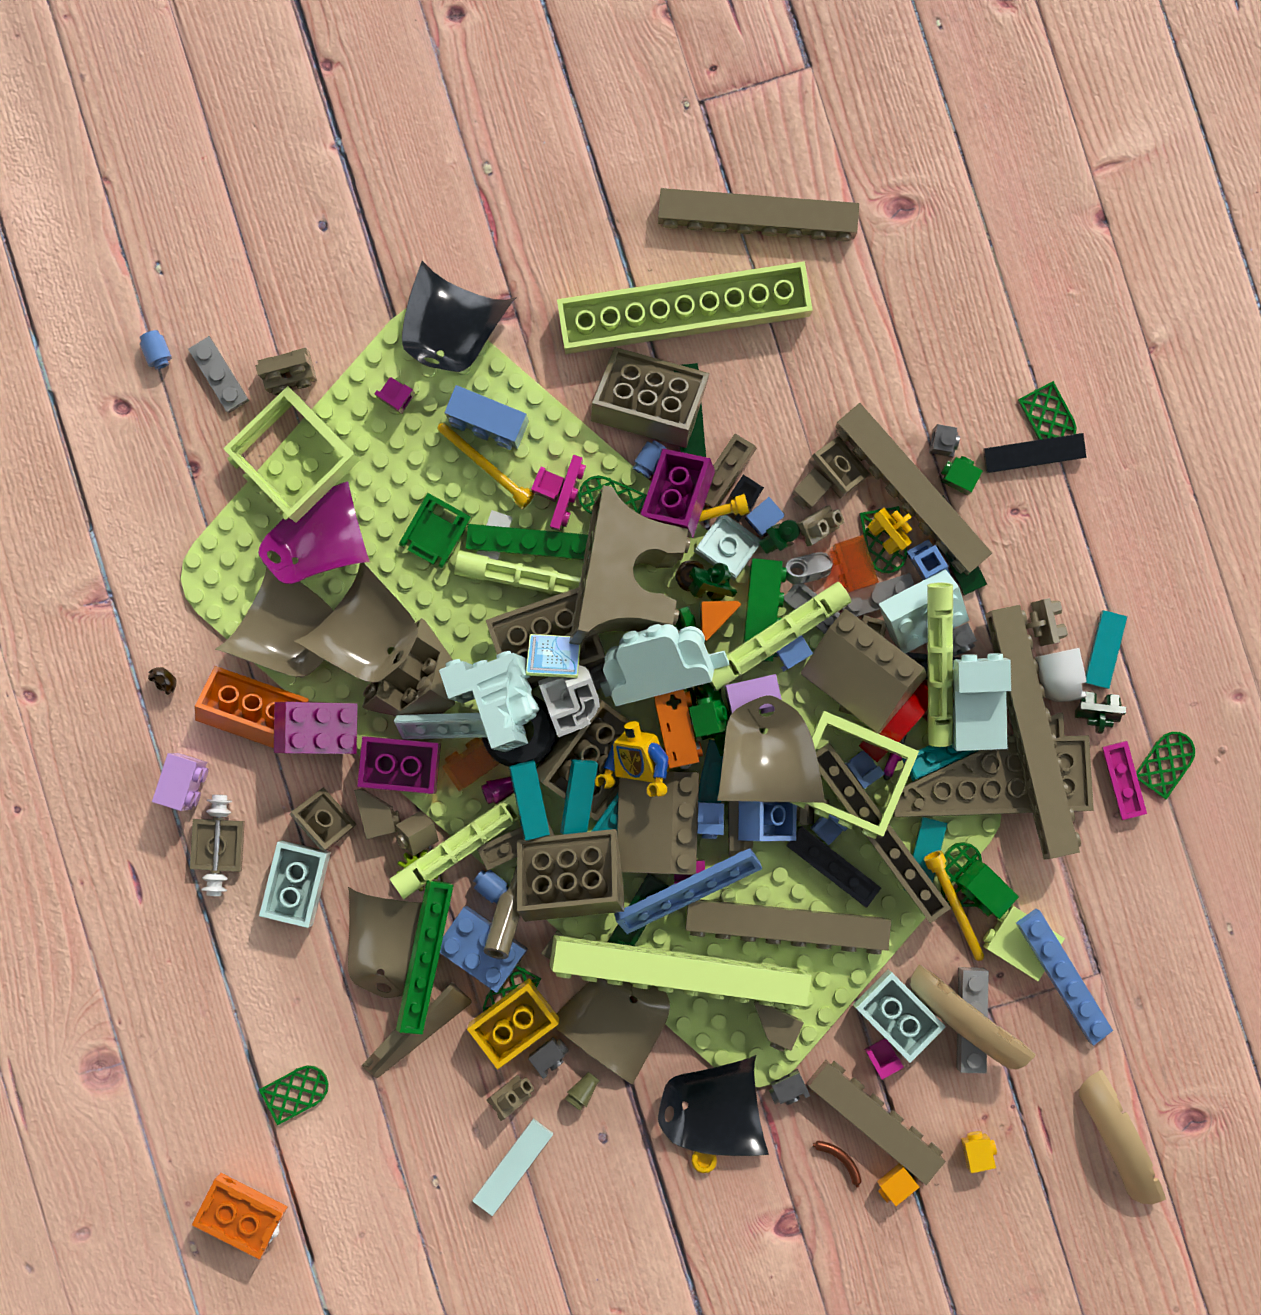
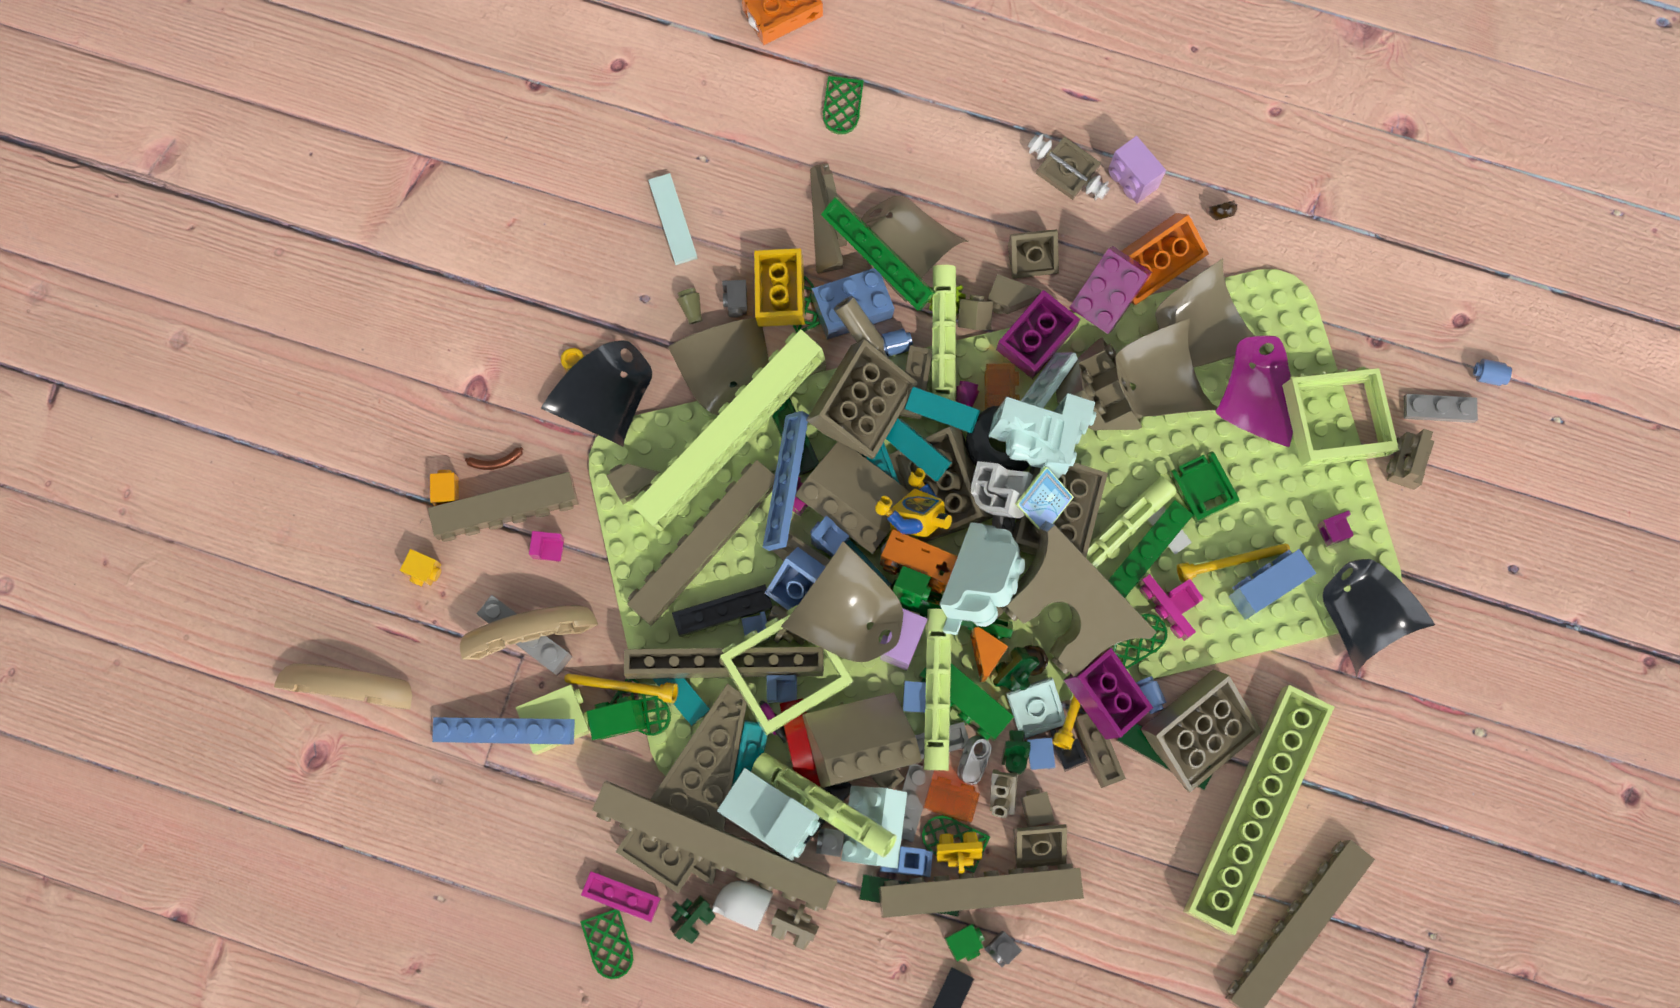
camera: 120 degrees right, 10 degrees down
(294, 884) = (999, 201): light aqua brick -> none
(510, 1096) = (726, 248): dark tan hips -> none
(788, 1088) = (578, 458): flat silver brick -> none
(899, 1015) = (570, 579): light aqua brick -> none
(1105, 649) = (737, 960): teal tile -> none

